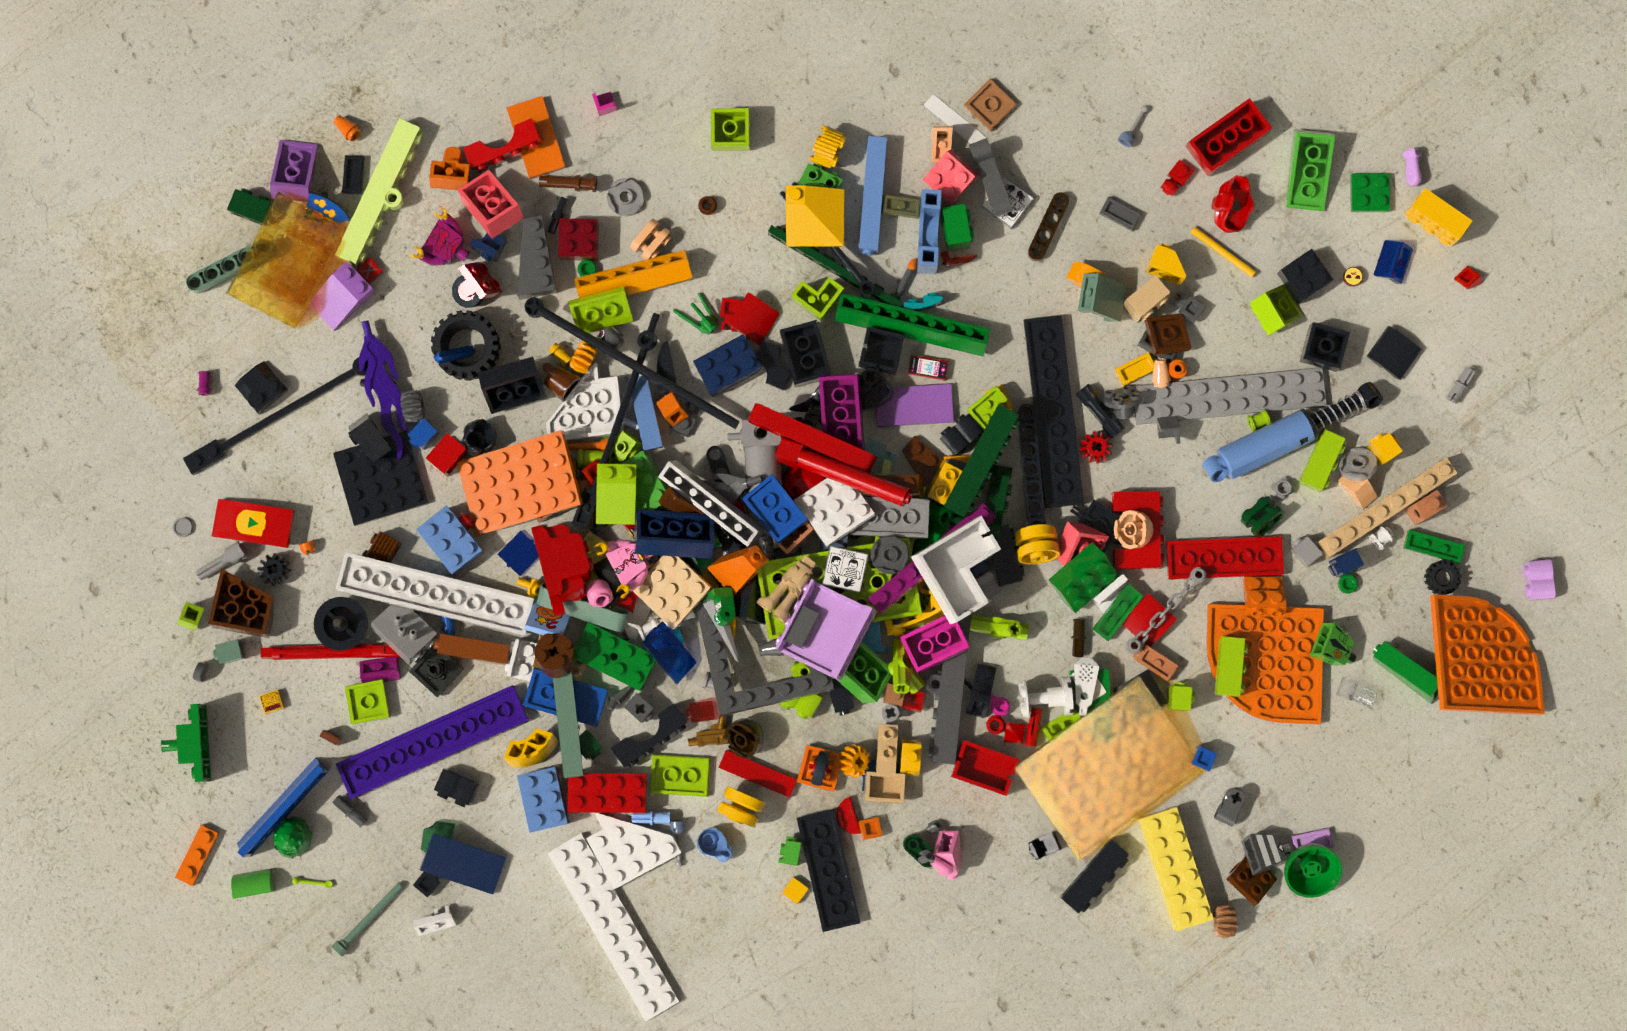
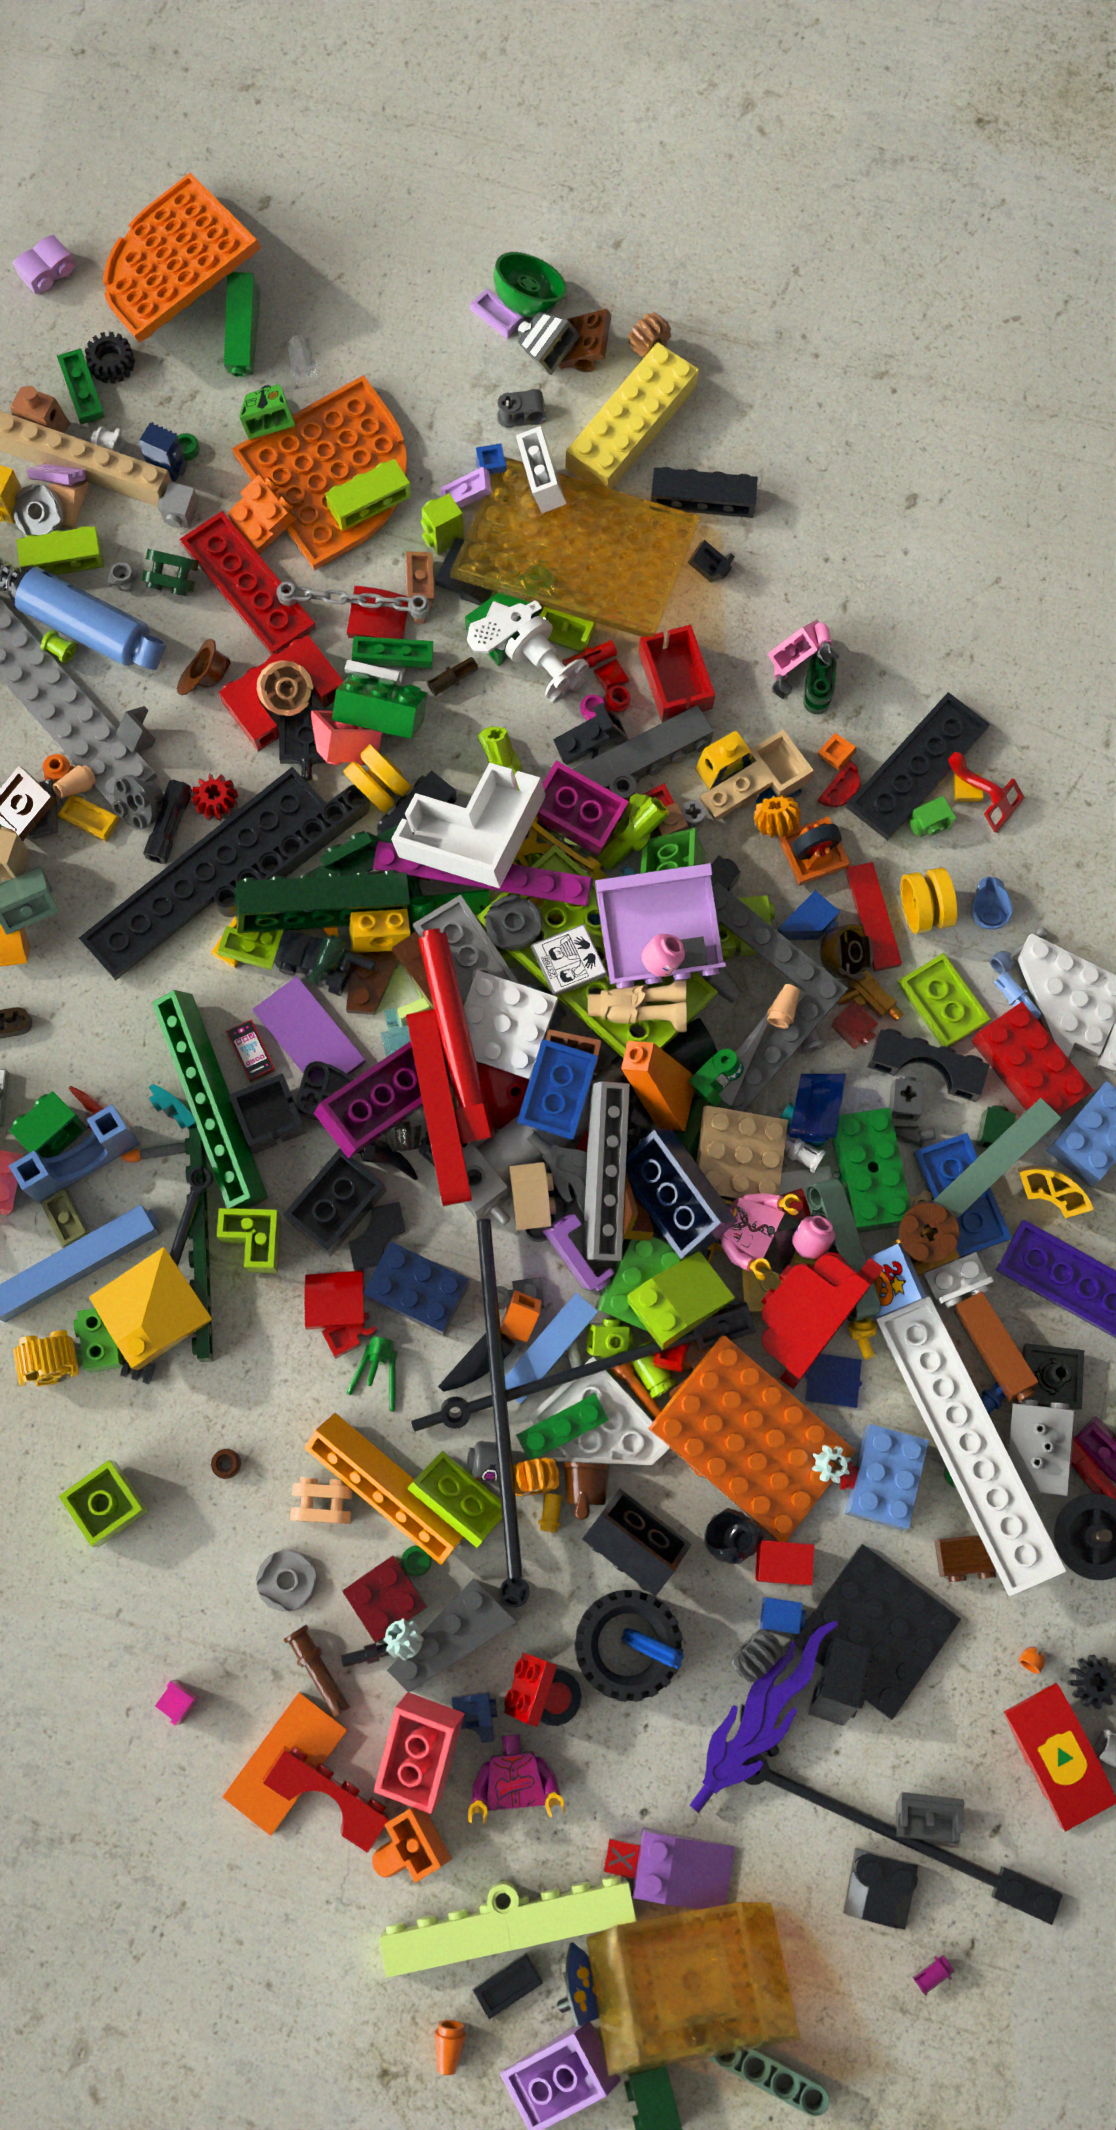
camera: 130 degrees left, 10 degrees down
(274, 435) = (929, 1817): none -> dark grey hinge
(472, 511) = (826, 1470): none -> light aqua gear
(549, 232) = (403, 1639): none -> light aqua gear
(598, 389) = (562, 1427): none -> green plate
(700, 460) = (571, 1256): none -> medium lavender panel
(730, 458) = (531, 1196): none -> tan brick
(734, 670) = (784, 1007): none -> light nougat cone
(775, 899) = (997, 794): none -> red piece
(780, 734) = (810, 919): none -> blue slope
(803, 614) = (663, 955): none -> bright pink head
(934, 442) = (339, 978): none -> black plate
(949, 445) = (330, 952): none -> clear green cone
(1171, 780) = (541, 470): none -> white brick
(1184, 493) = (205, 669): none -> reddish brown piece
(1194, 729) = (469, 487): none -> lavender plate
(1373, 494) = (56, 474): none -> lavender tile

